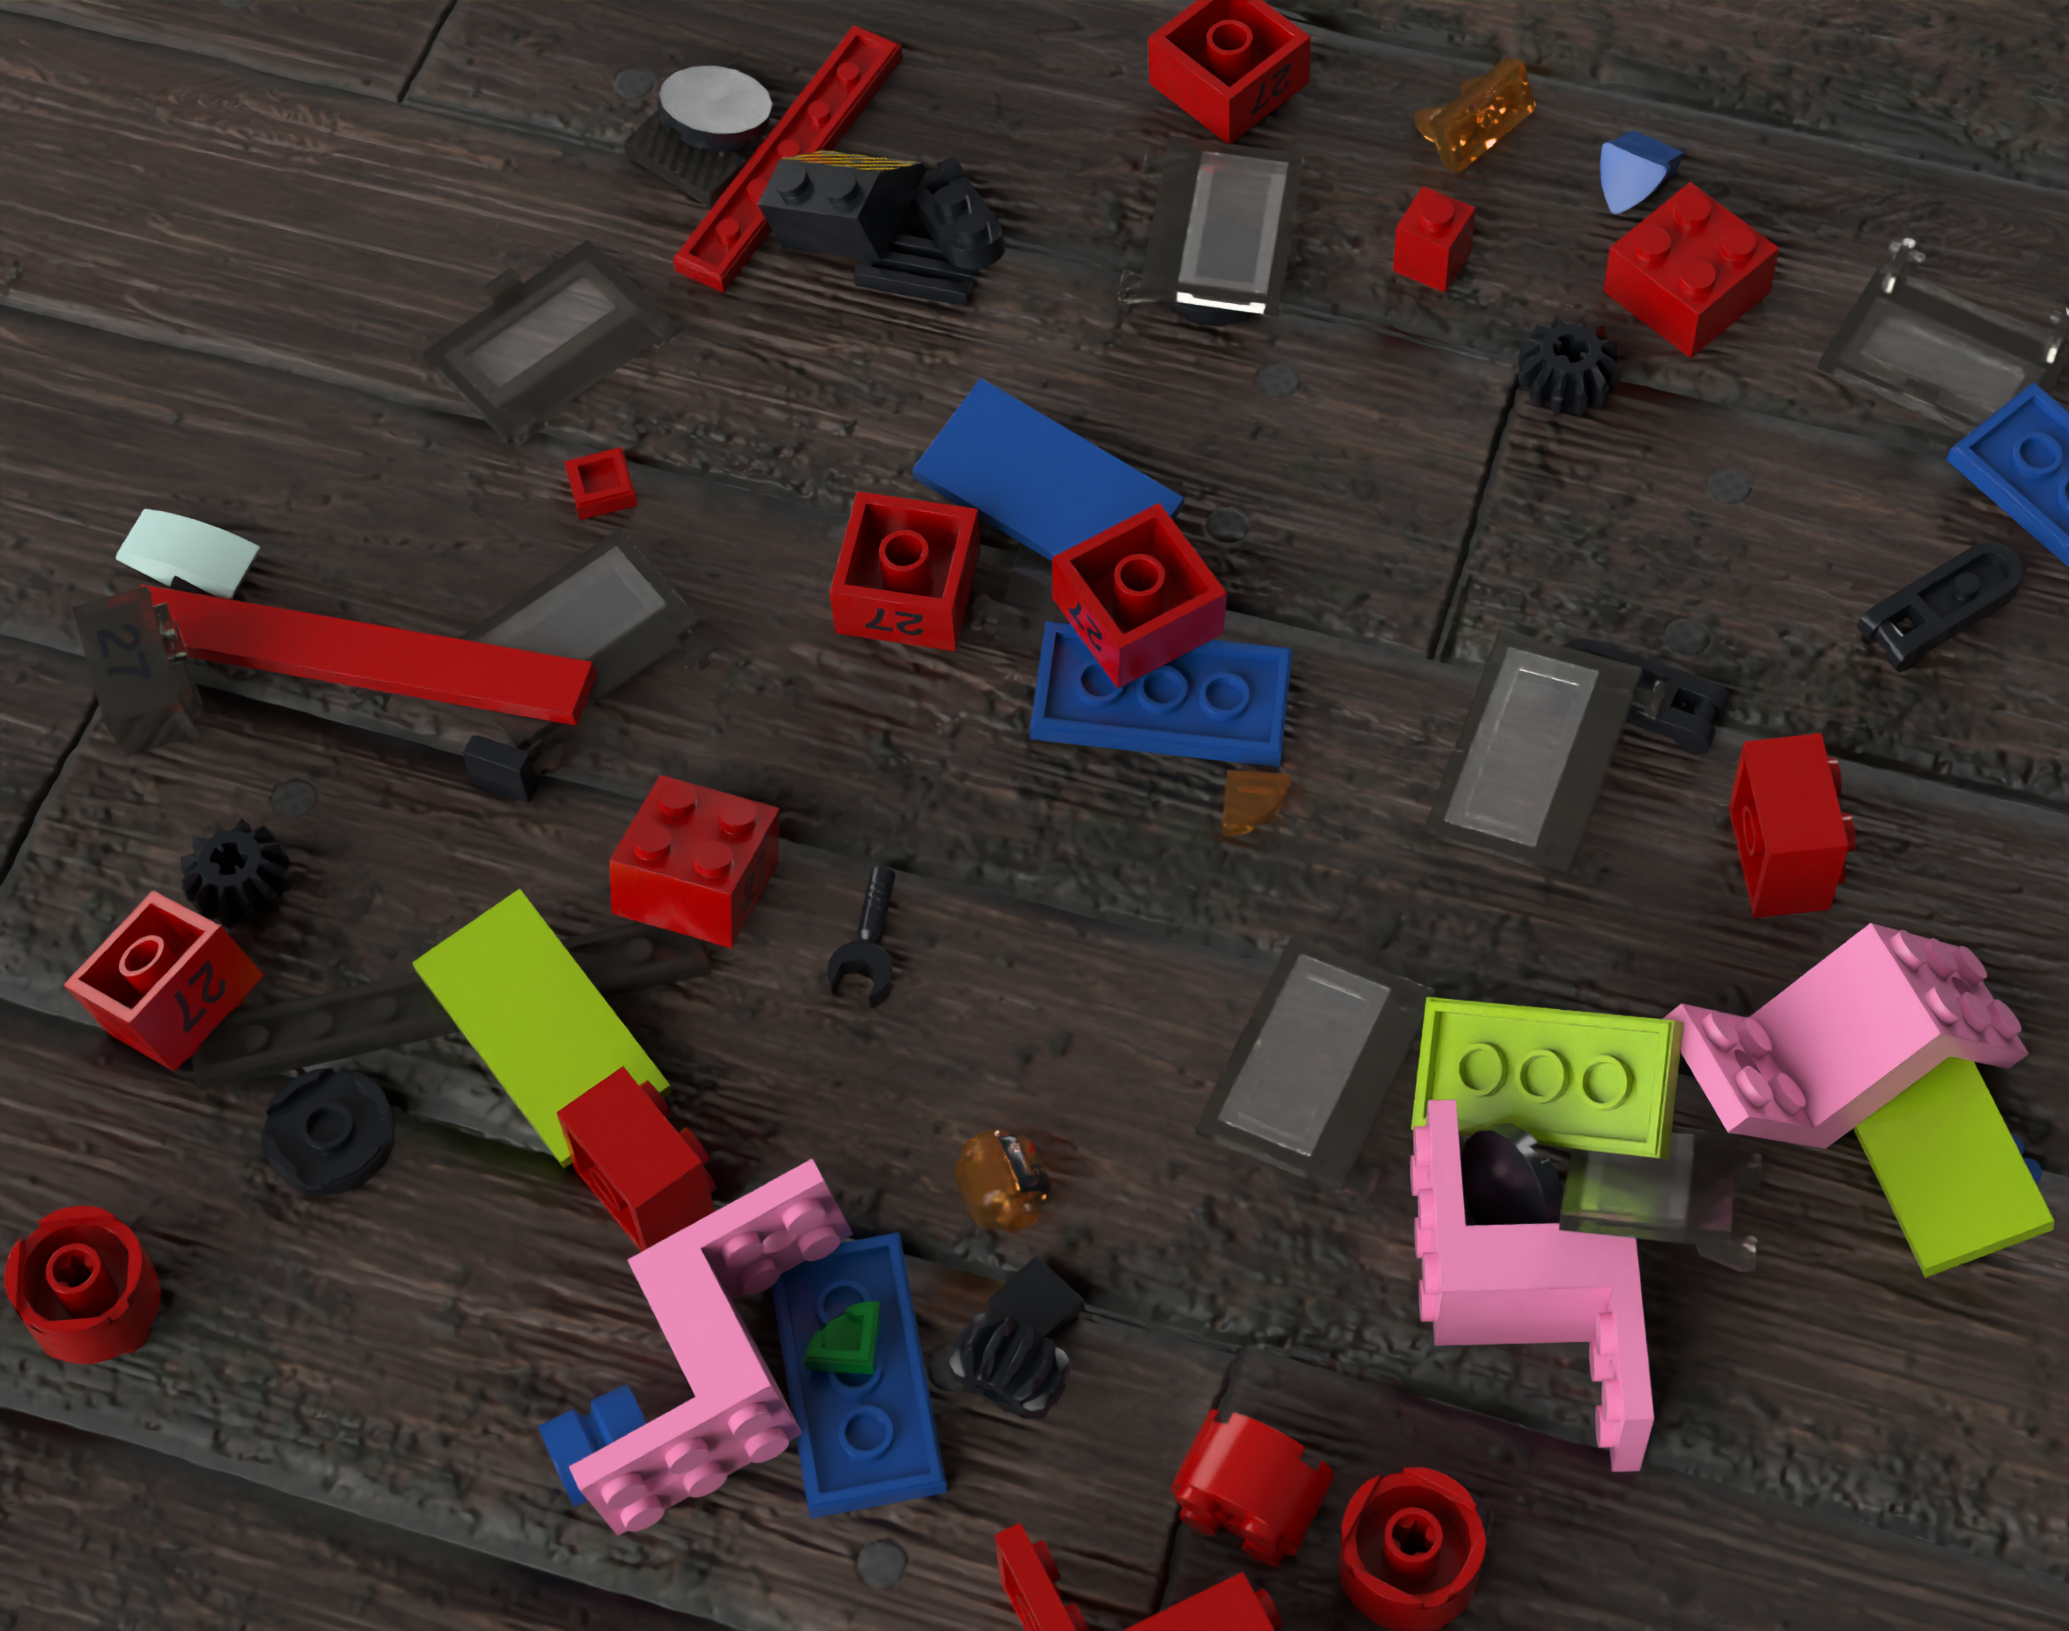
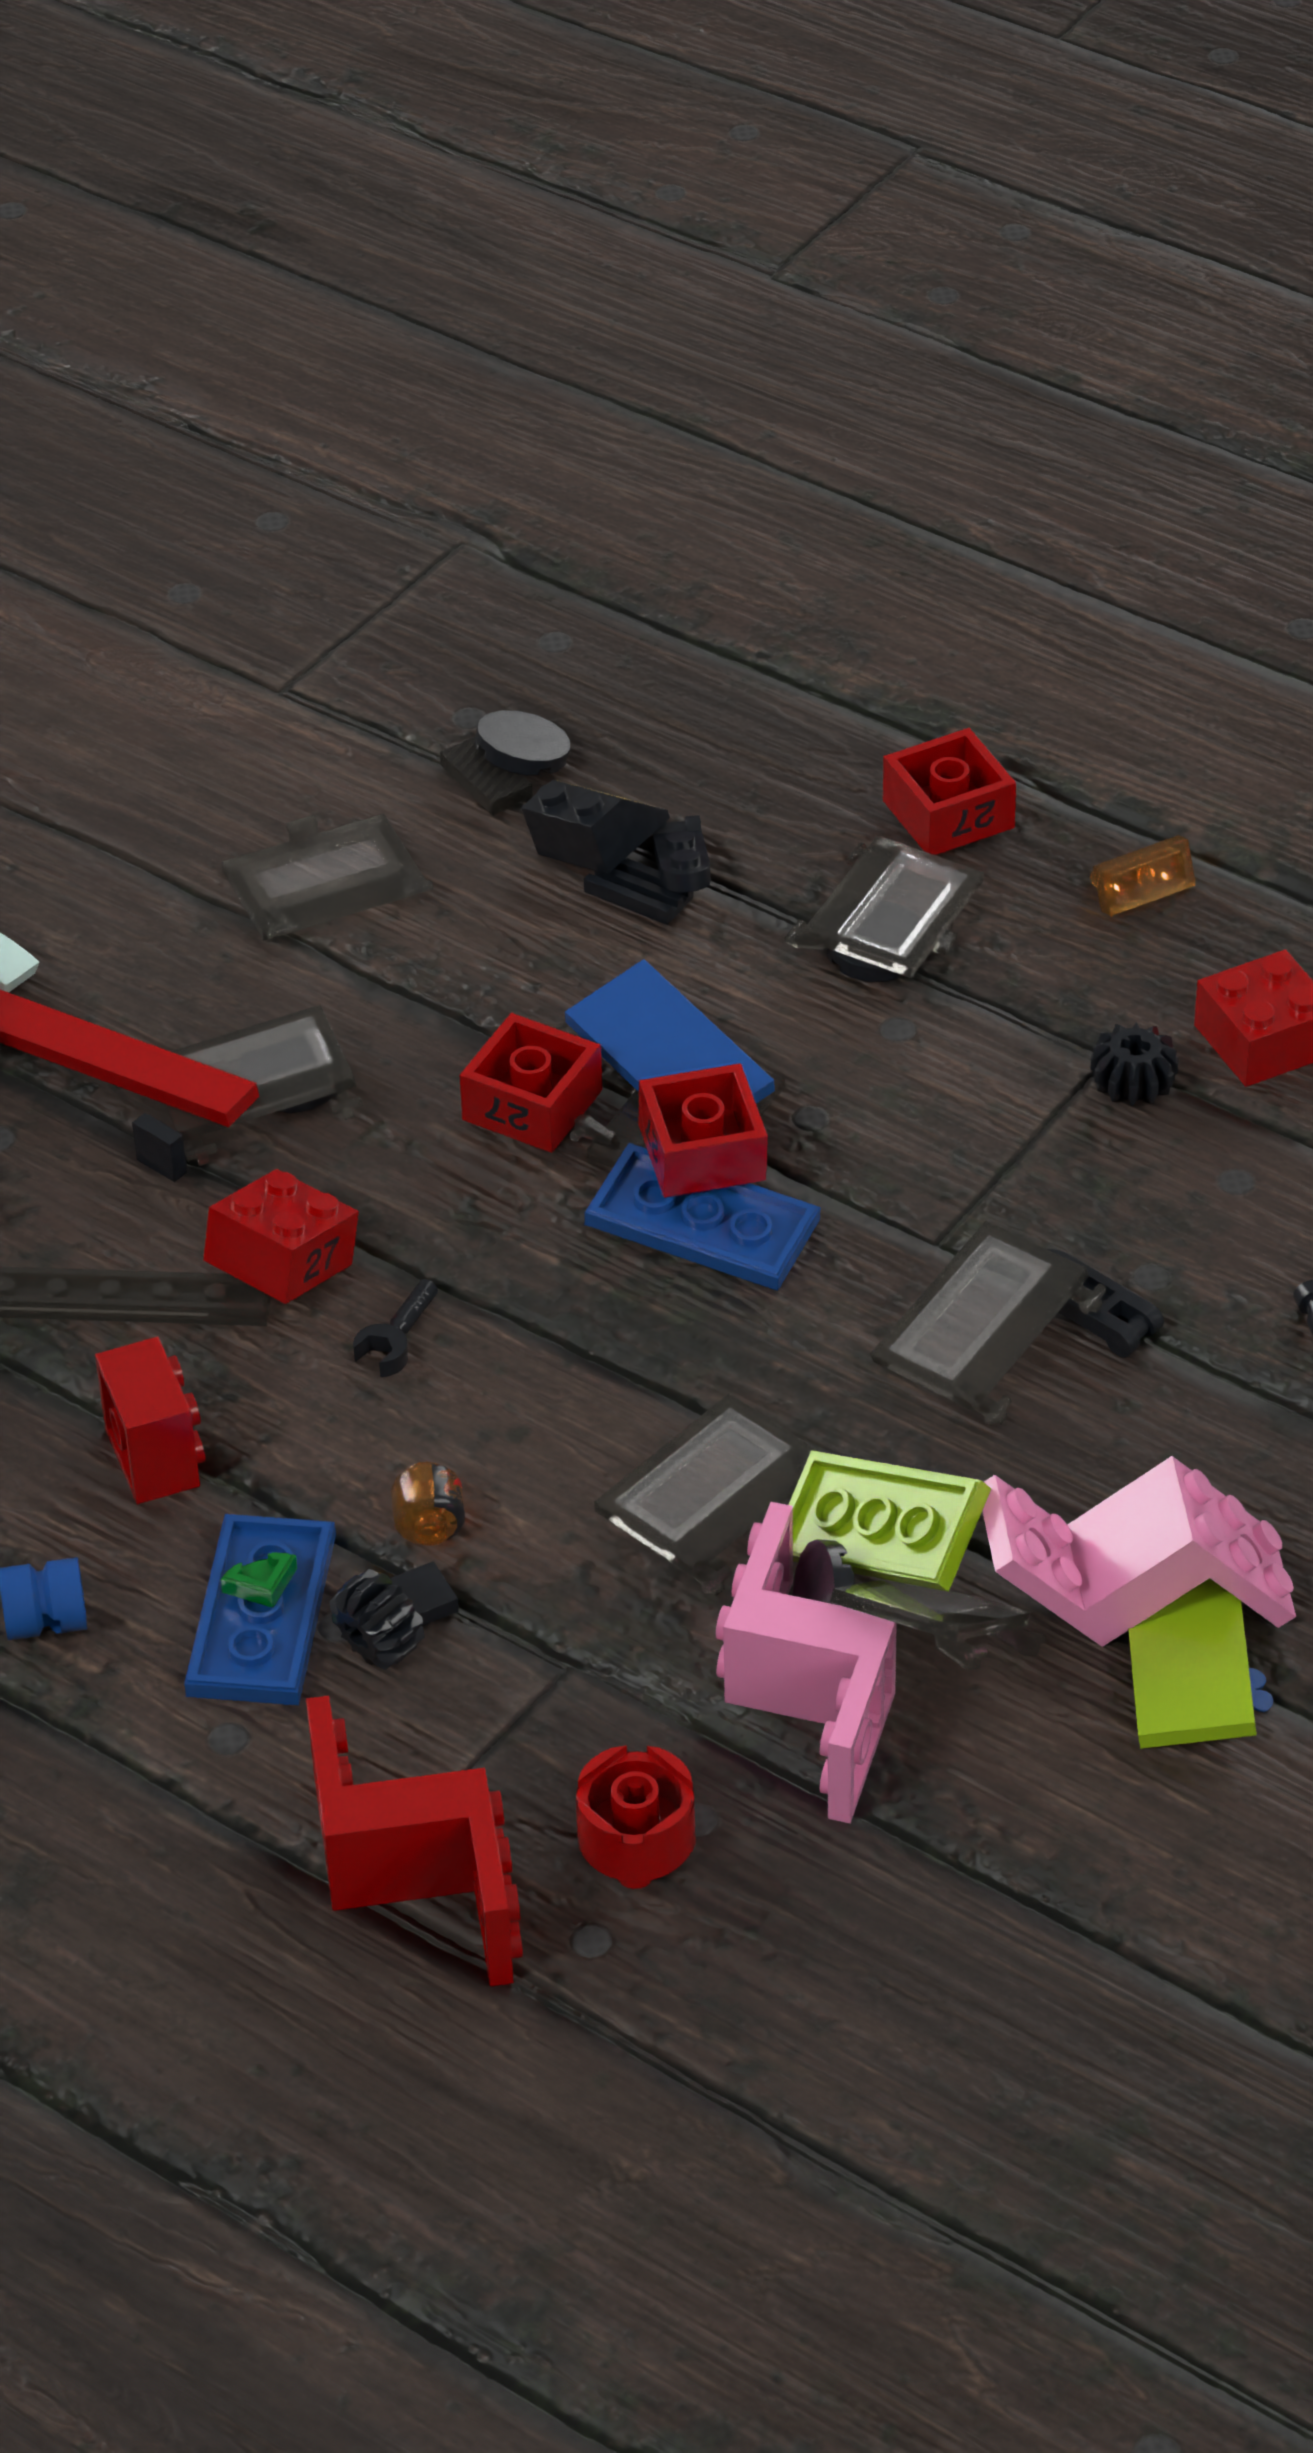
camera: 15 degrees right, 15 degrees down
(532, 1014) = (109, 1299): lime tile -> none
(601, 483) = (322, 980): red tile -> none
(737, 1402) = (149, 1585): bright pink bracket -> none
(812, 124) = (603, 769): red tile -> none
(1251, 1485) = (527, 1738): red brick -> none
(1252, 799) = (743, 1302): clear orange tile -> none
(1434, 239) = (1062, 952): red brick -> none
(1635, 169) = (1254, 936): tile -> none
(1790, 825) = (1162, 1400): red brick -> none

